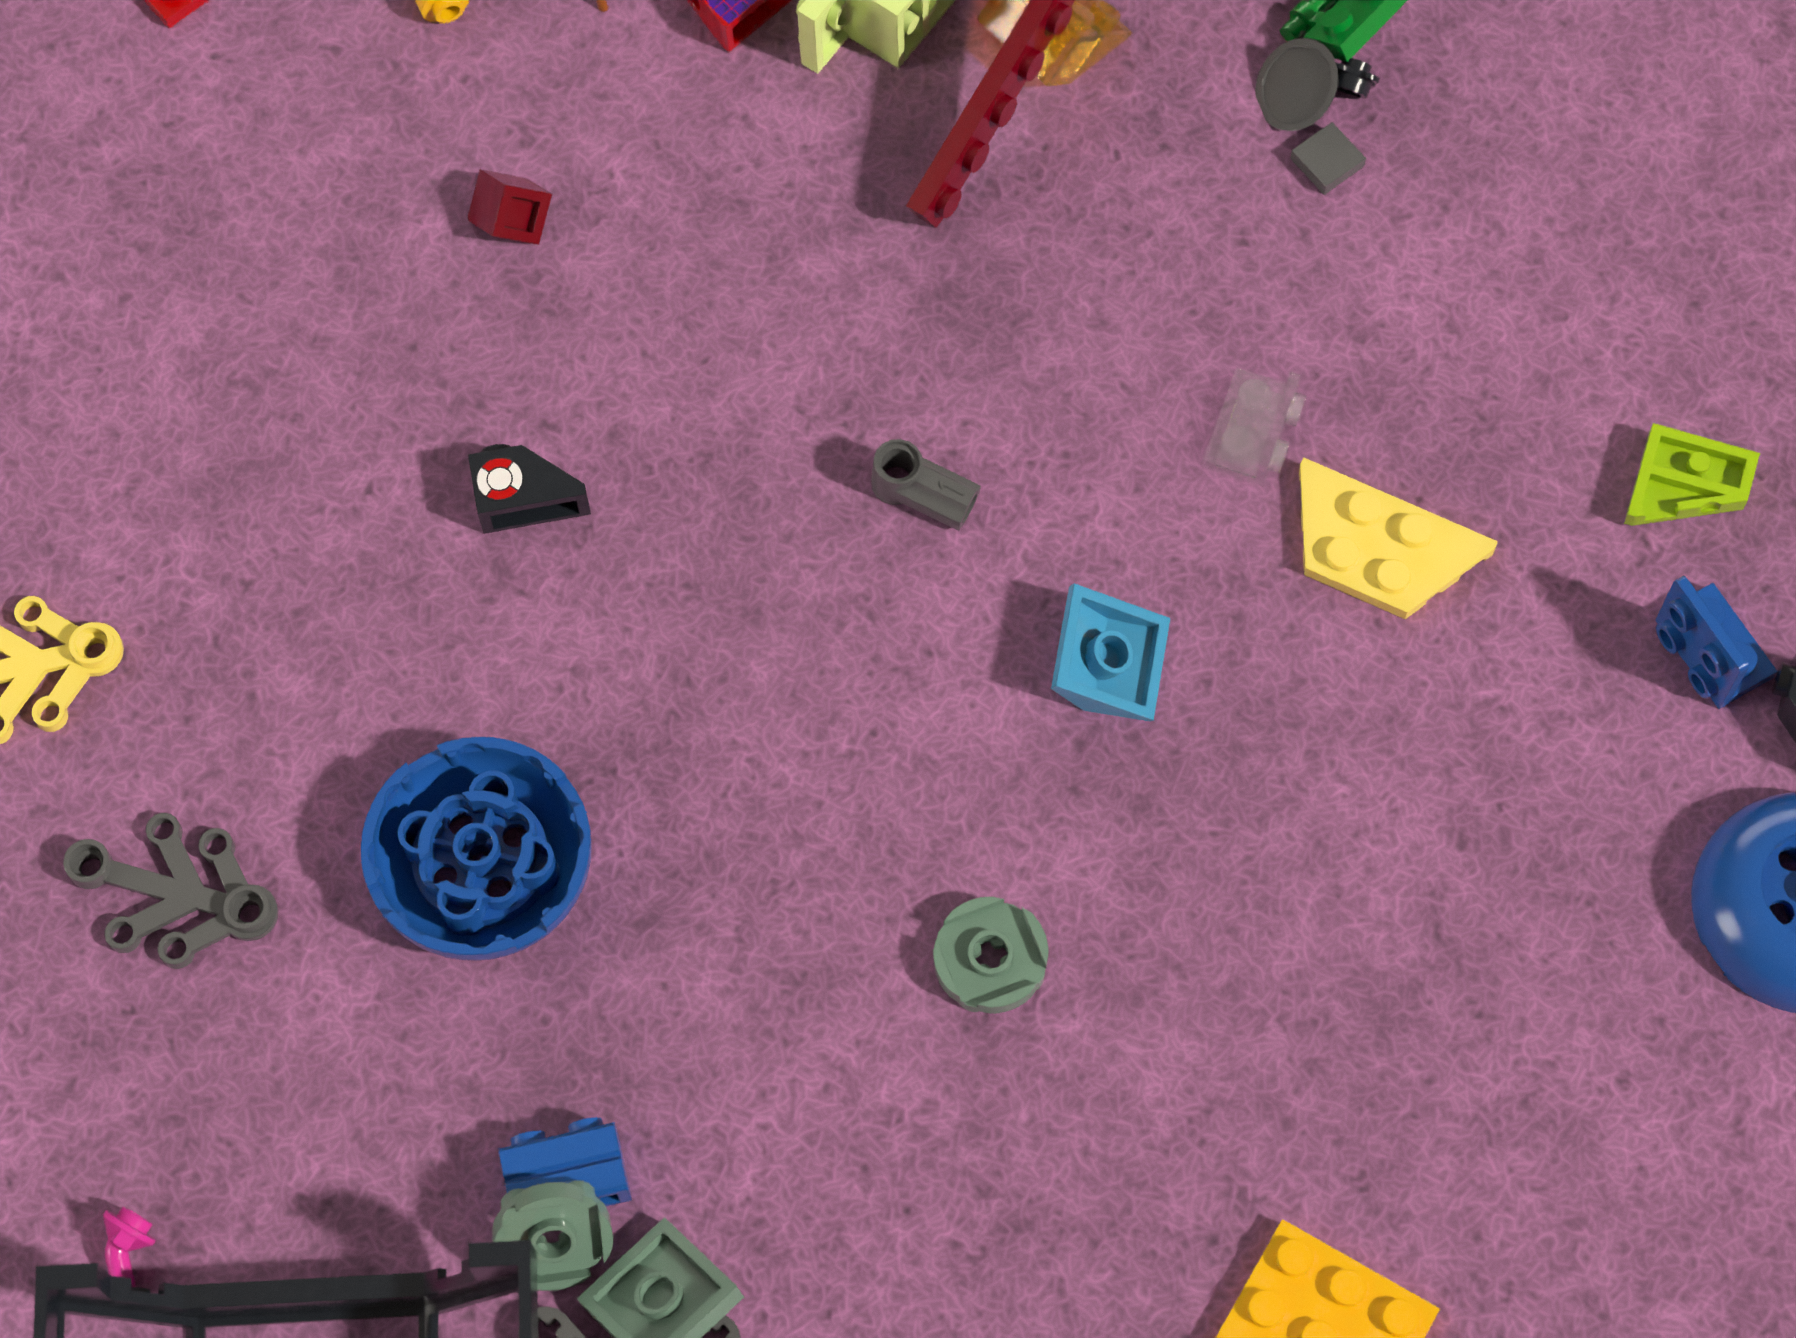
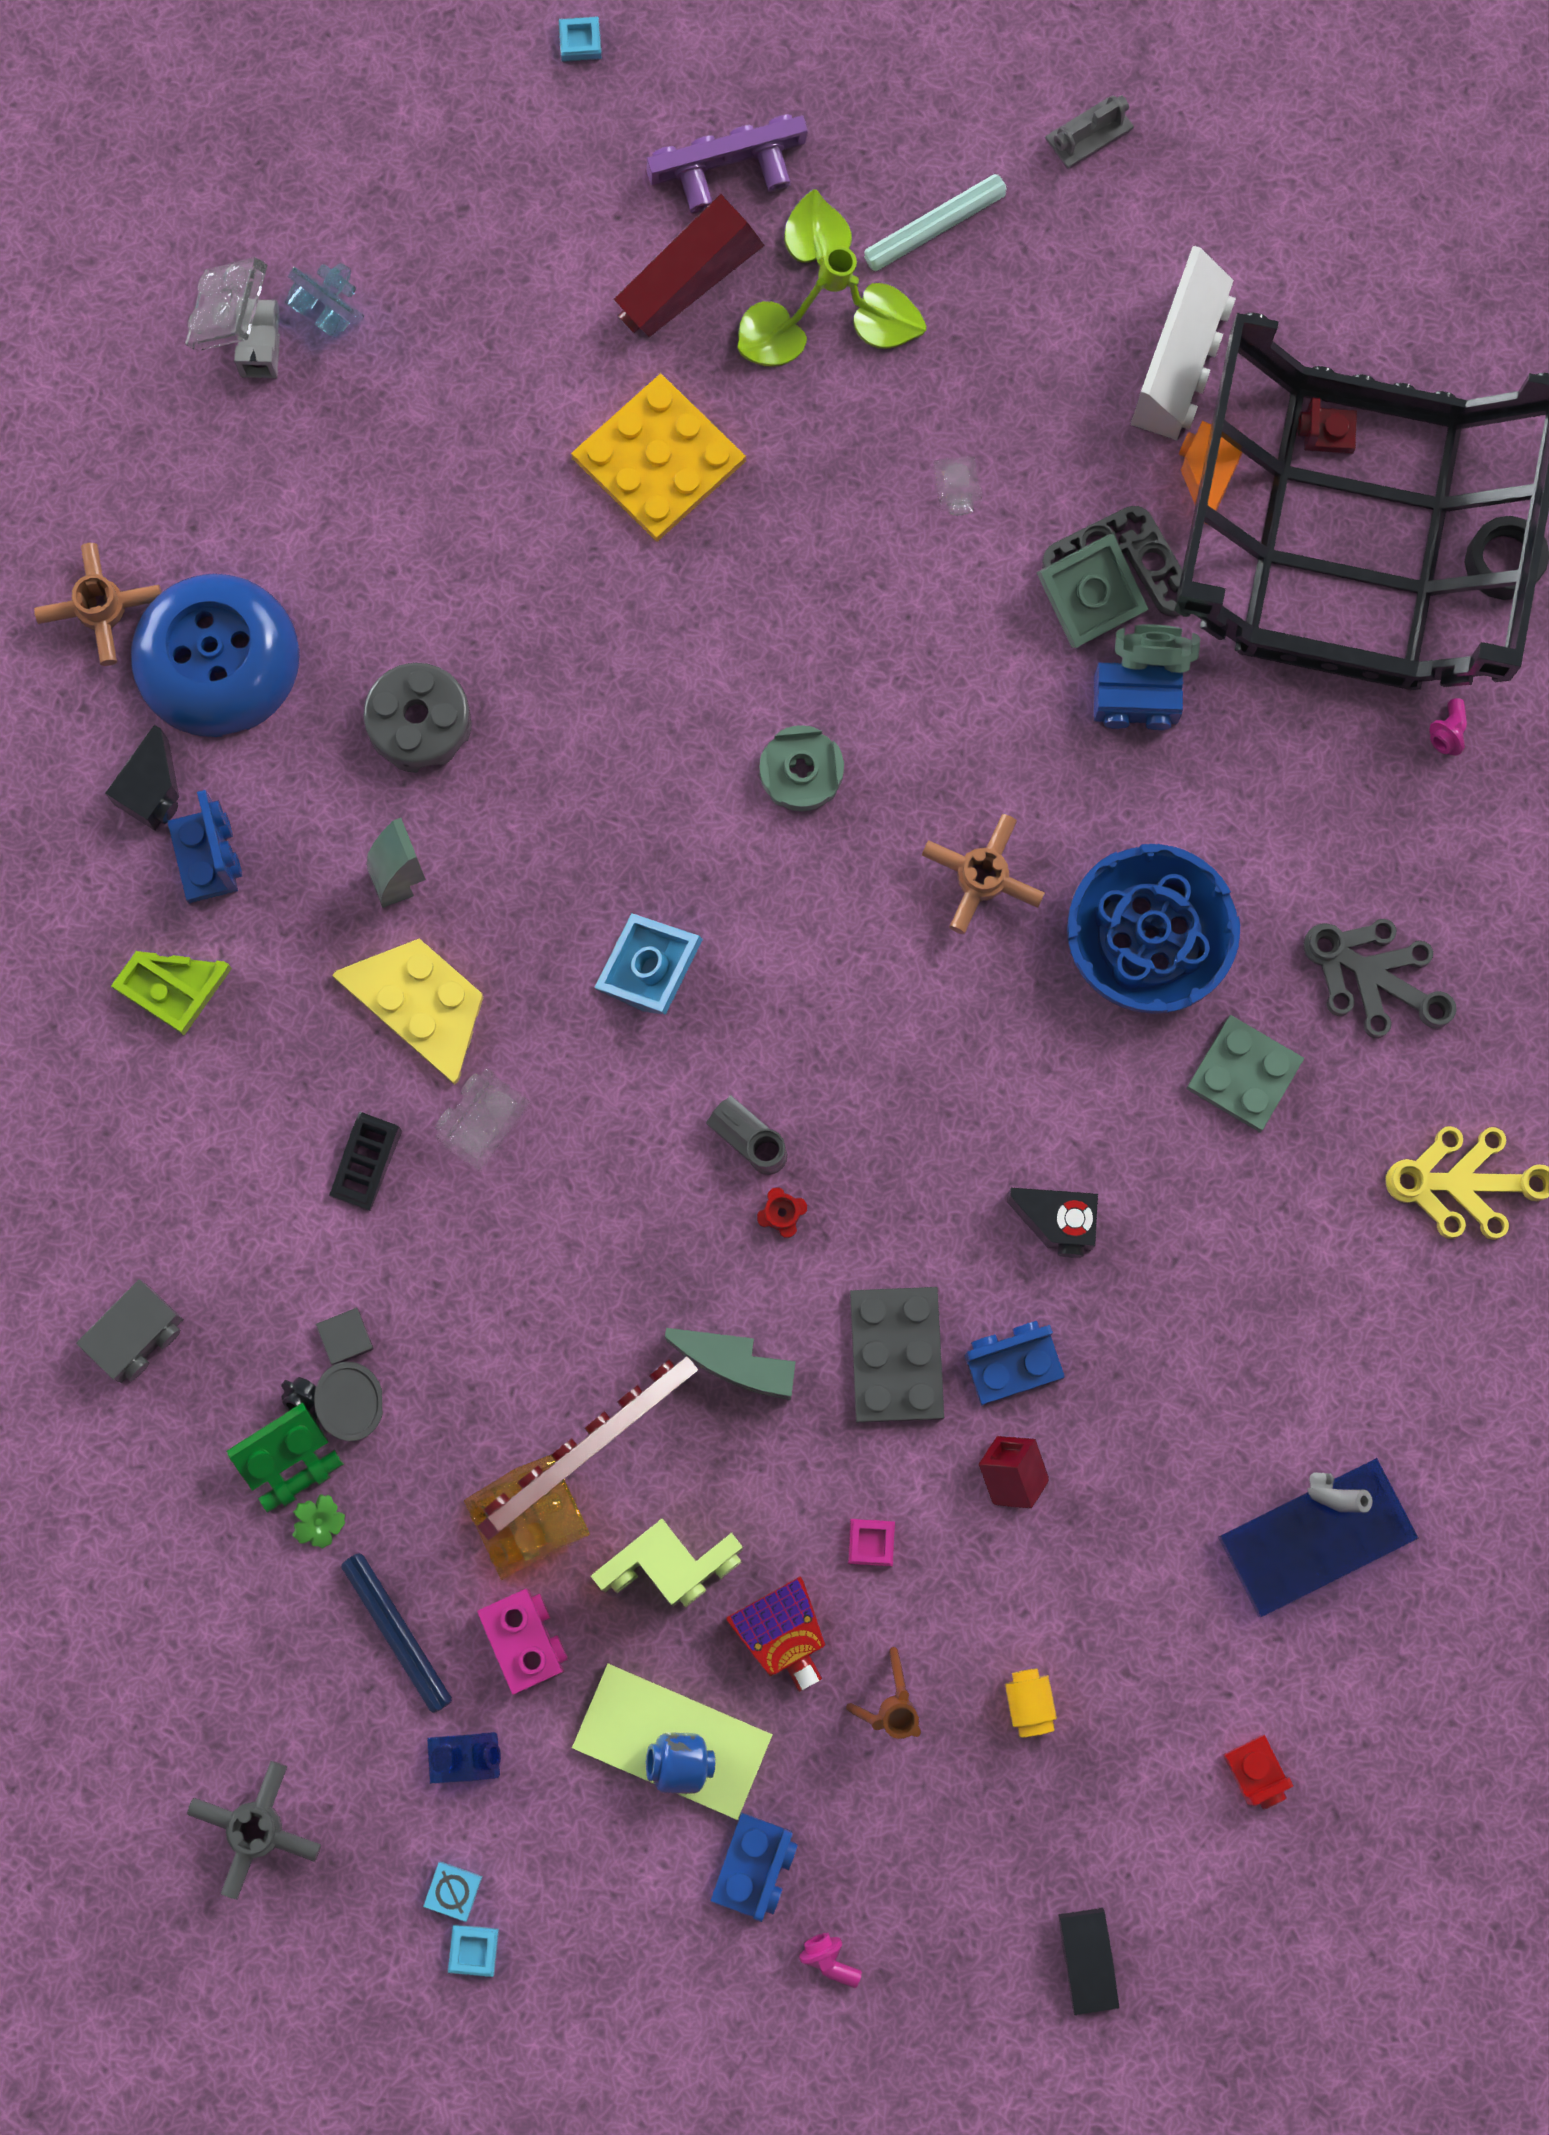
camera: 170 degrees left, 10 degrees up
(128, 259) = (1322, 1491): none -> light grey arm
(139, 229) = (1312, 1545): none -> clear blue plate
(323, 726) = (1245, 1073): none -> sand green plate
(537, 323) = (1013, 1363): none -> blue bracket
(656, 102) = (871, 1542): none -> dark pink tile
(679, 300) = (896, 1354): none -> dark grey plate
(730, 884) = (990, 859): none -> nougat bar
(859, 403) = (779, 1200): none -> red plate
(870, 235) = (733, 1362): none -> sand green slope
(1373, 383) = (356, 1139): none -> black slope
(1464, 664) = (393, 864): none -> sand green slope
(1504, 919) = (422, 743): none -> dark grey plate
(1572, 94) = (131, 1332): none -> dark grey brick

